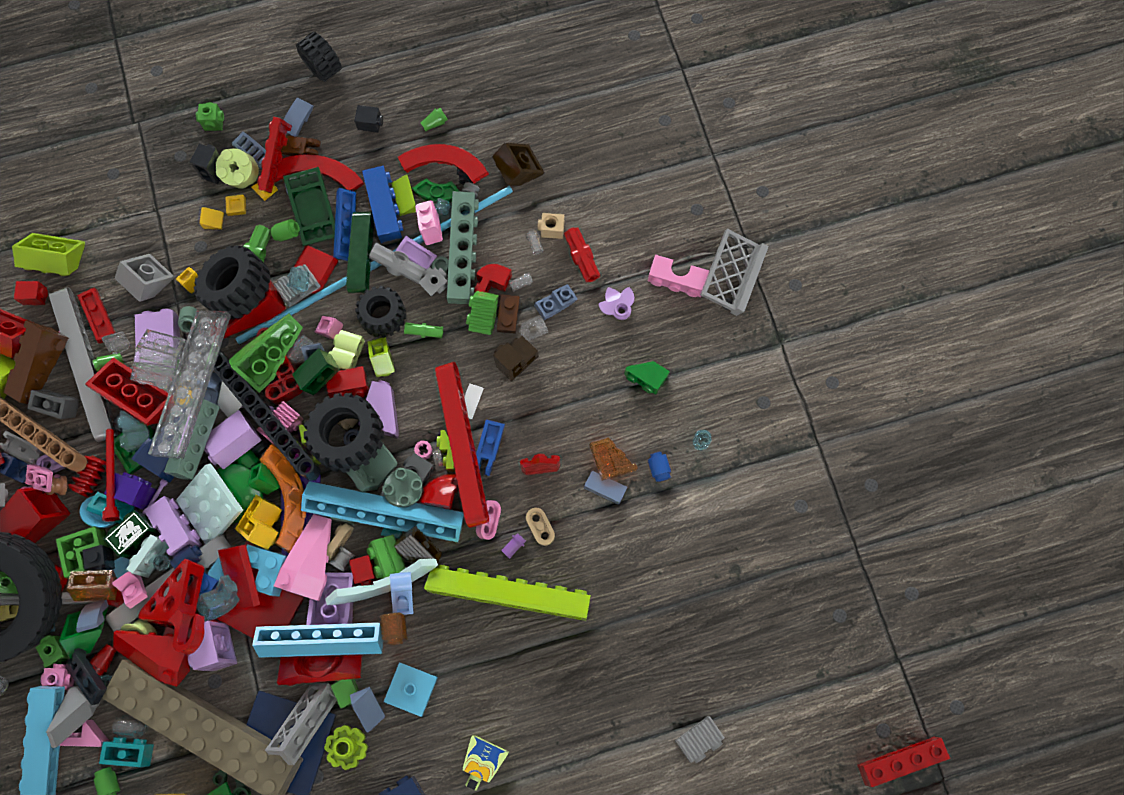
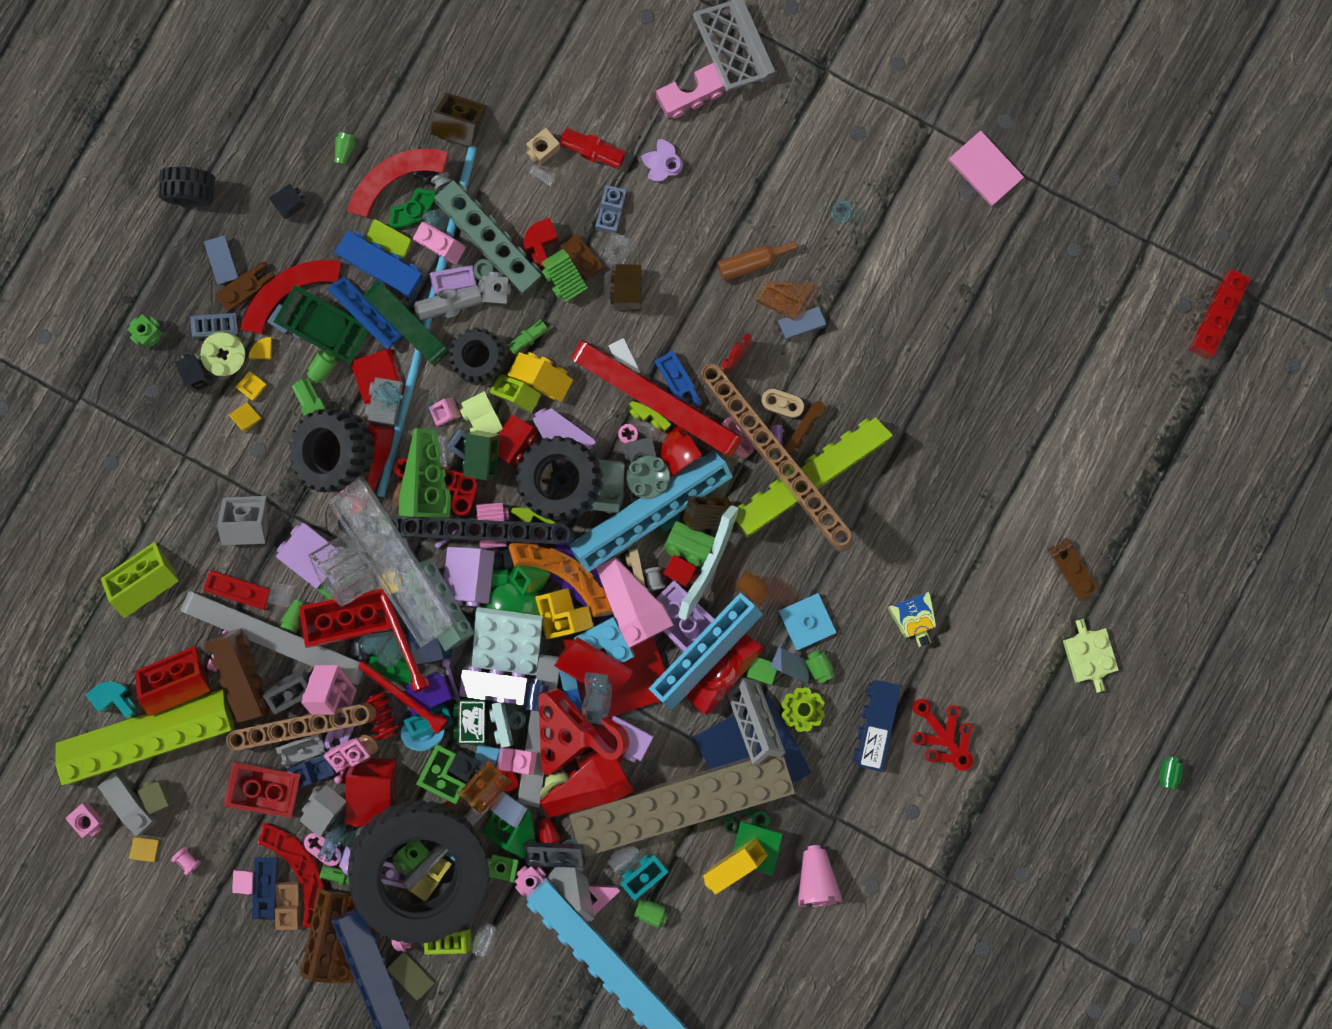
camera: 45 degrees left, 10 degrees up
(30, 293) = (162, 626): red brick -> none
(71, 423) = (328, 690): none -> bright pink brick
(122, 473) = (418, 680): none -> red piece
(186, 318) = (322, 517): sand green brick -> none
(187, 279) = (283, 485): yellow slope -> none
(227, 401) = (430, 549): white sticker -> none
(273, 155) = (237, 304): red wing -> none
(387, 729) = (820, 666): none -> bright green brick
(401, 593) = (730, 556): light blue plate -> none
(404, 359) = (541, 375): none -> yellow brick
(494, 564) = (780, 465): none -> medium nougat beam
(521, 281) = (565, 220): clear pin -> none
(539, 556) = (805, 427): none -> reddish brown hinge
(612, 416) = (752, 260): none -> dark orange piece
(648, 375) = (748, 199): green slope -> none
(659, 466) = (829, 265): blue brick -> none
(700, 739) = (1058, 444): light grey brick -> none
(828, 503) = (986, 168): none -> bright pink tile

